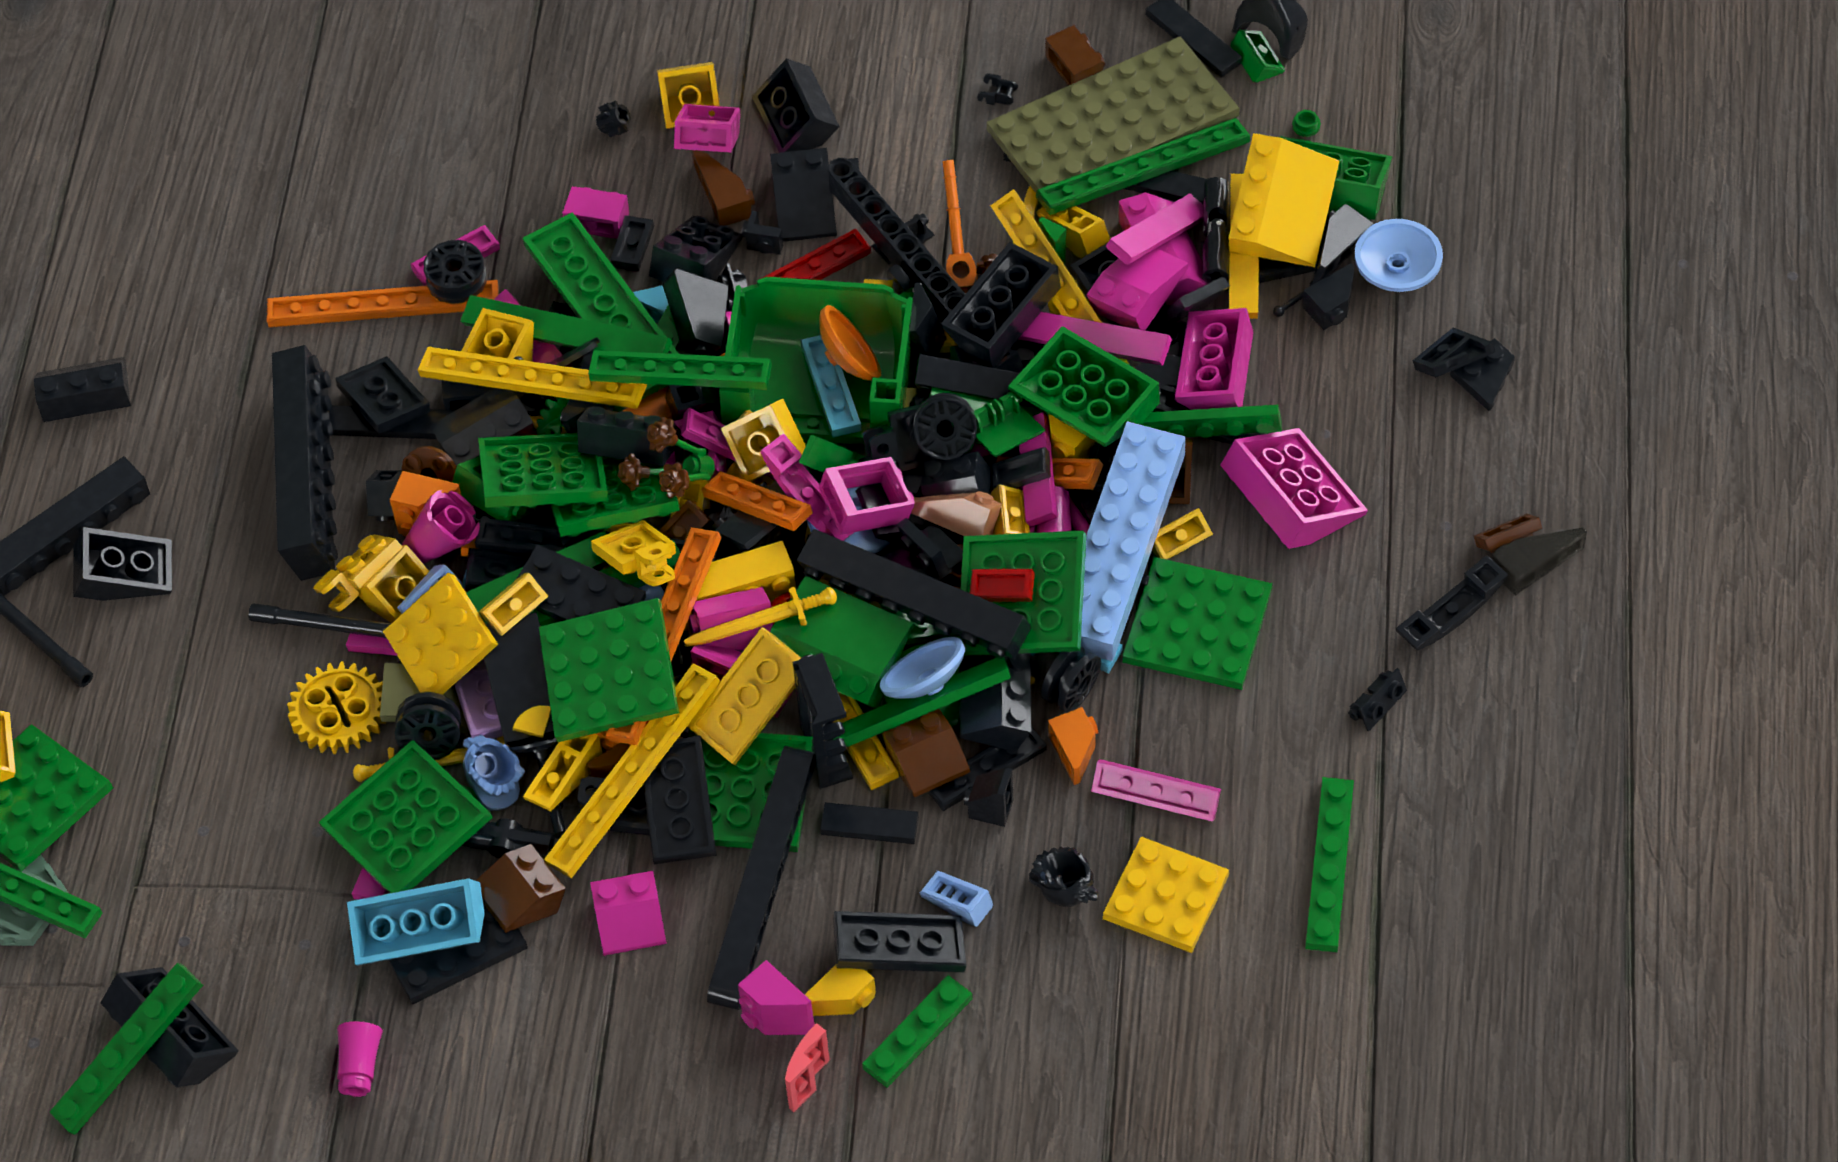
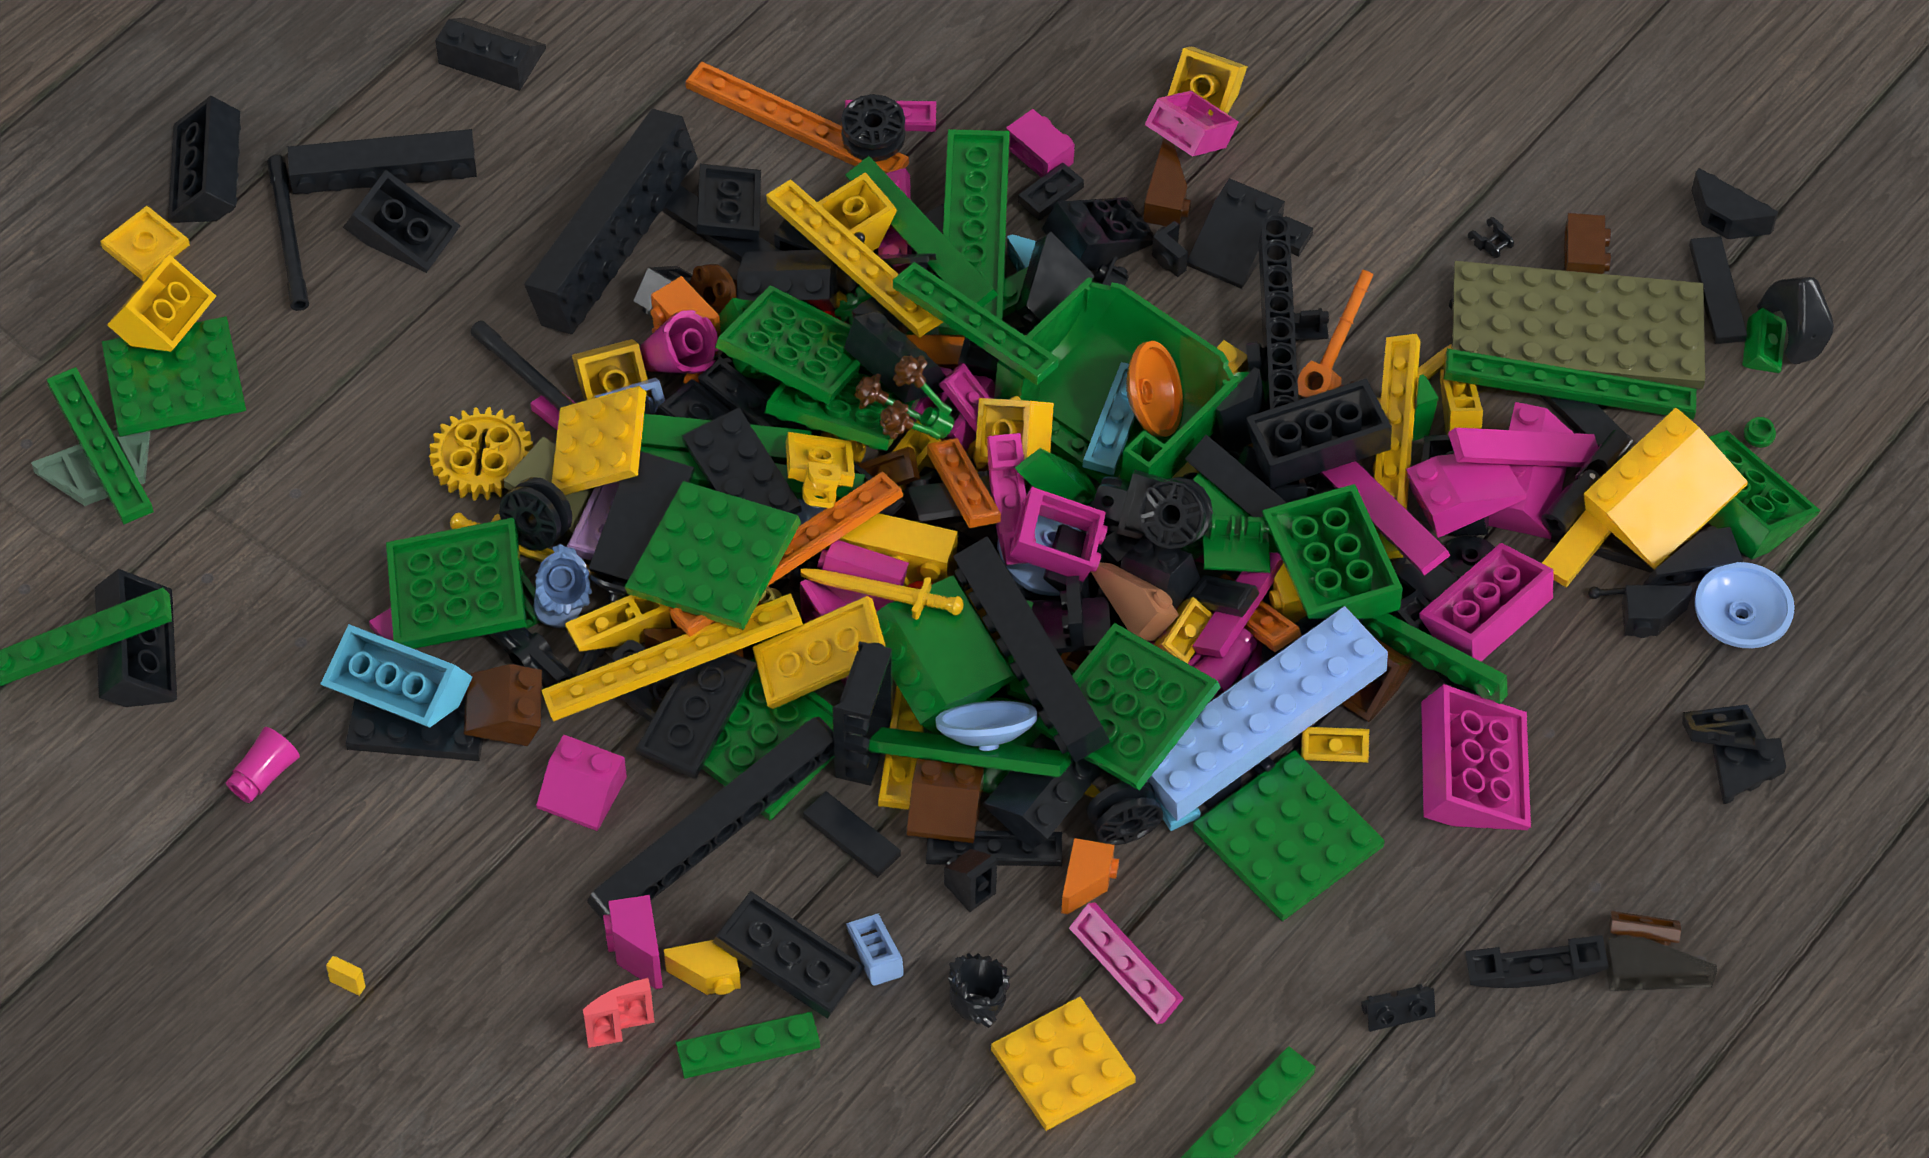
camera: 30 degrees right, 0 degrees up
(357, 569) = (586, 341): yellow plate -> none
(513, 604) = (676, 447): yellow slope -> none
(533, 721) = (622, 562): yellow tile -> none
(613, 118) = (1120, 69): black gear -> none
(795, 108) = (1291, 151): black slope -> none
(827, 258) = (1205, 304): red tile -> none
(1003, 584) = (1112, 687): red tile -> none
(1192, 302) = (1512, 535): black tile -> none

